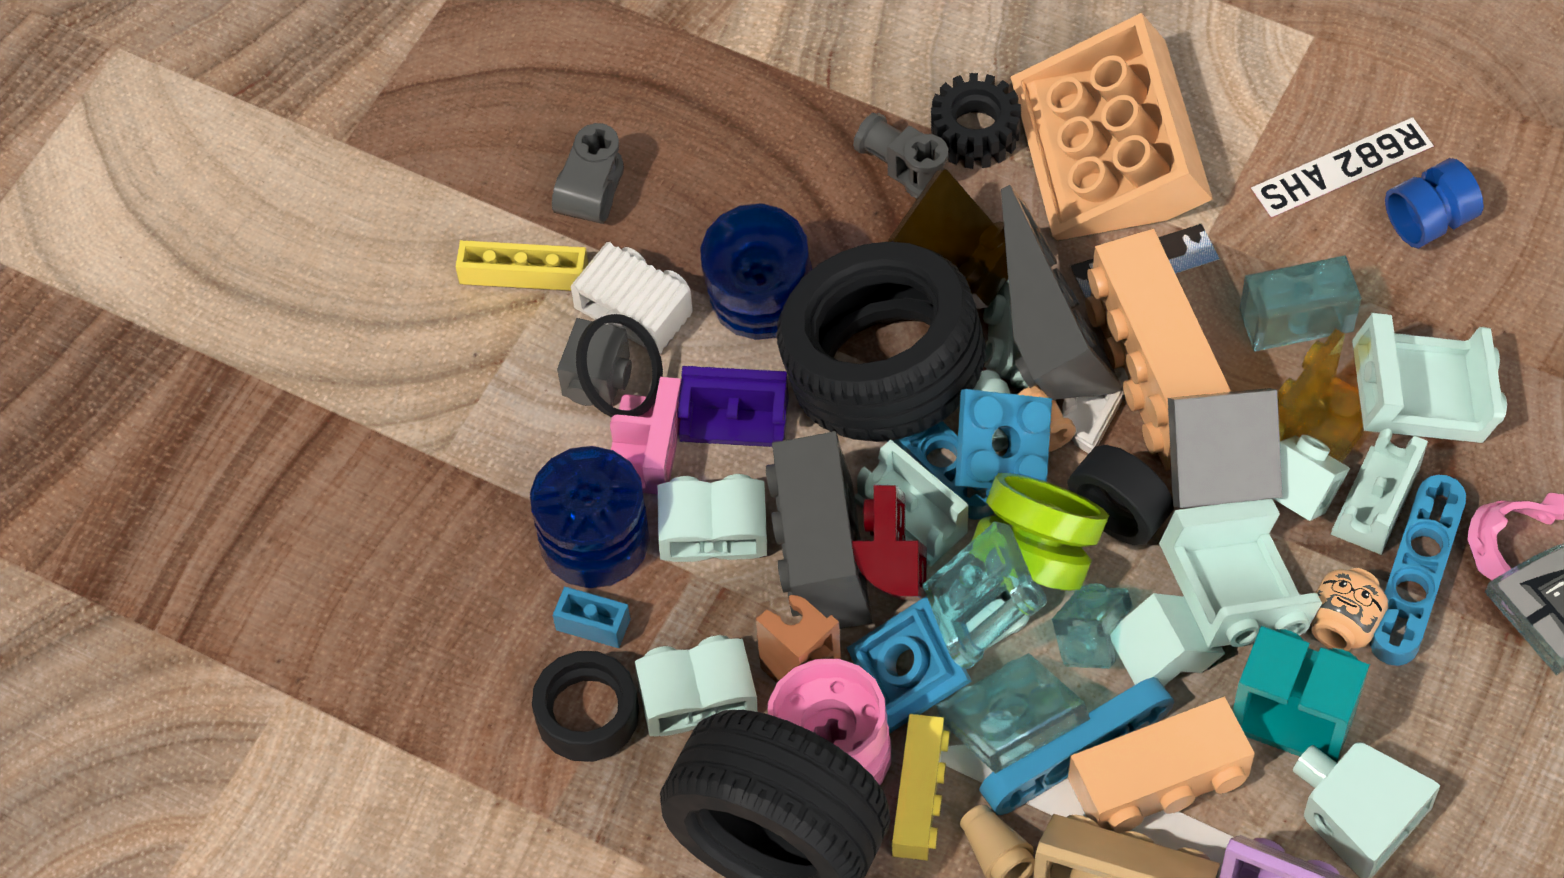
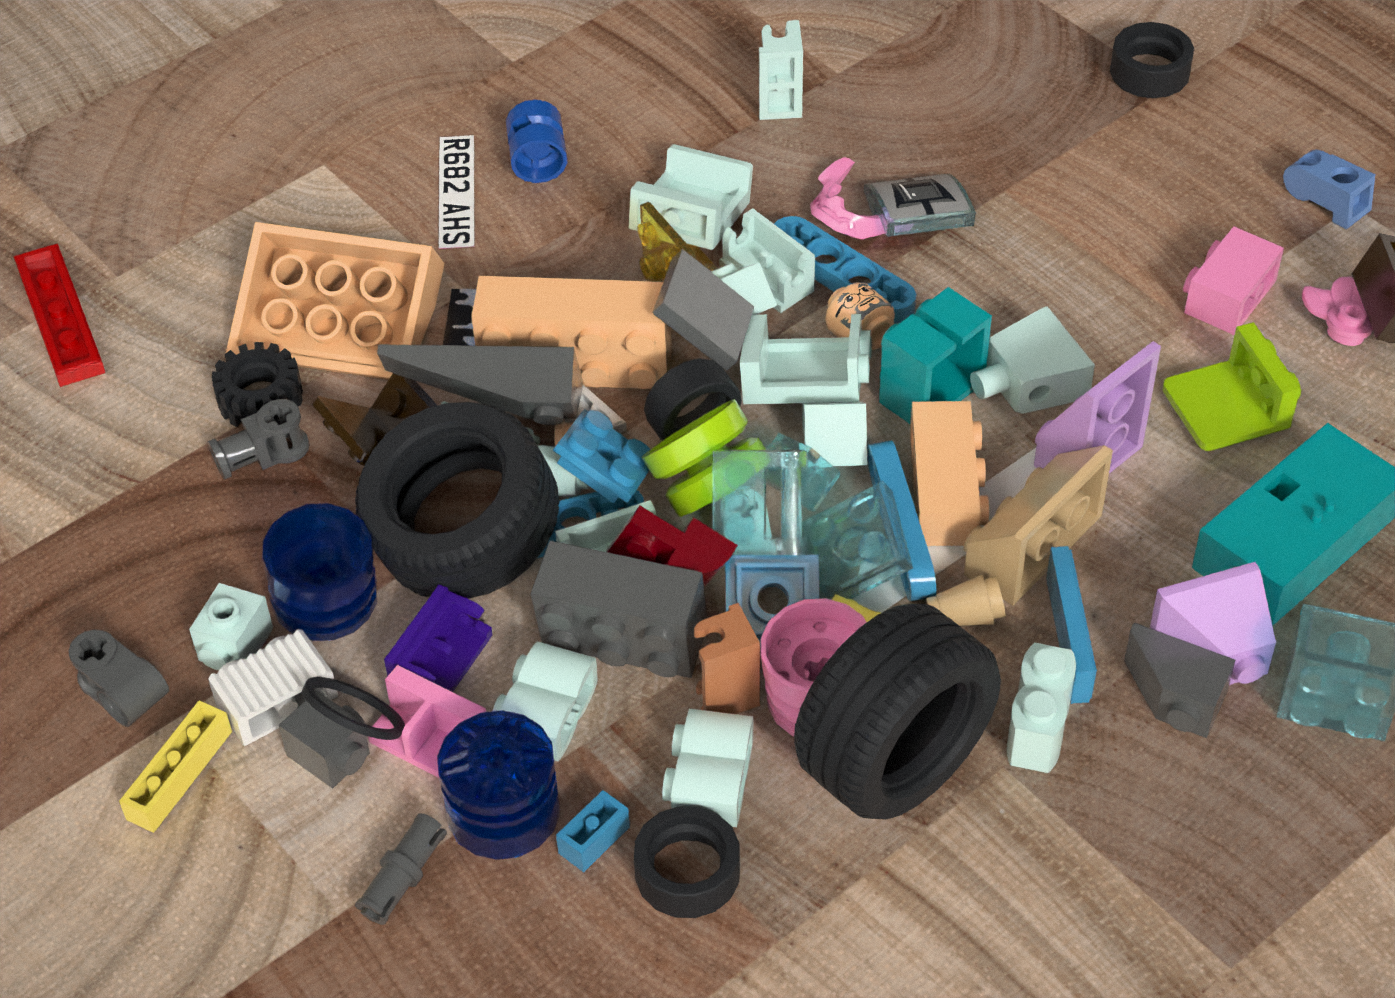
camera: 70 degrees left, 10 degrees down
(485, 481) = (401, 869): none -> dark grey pin
(675, 234) = (230, 626): none -> light aqua brick
(1299, 303) = (576, 238): clear light blue brick -> none

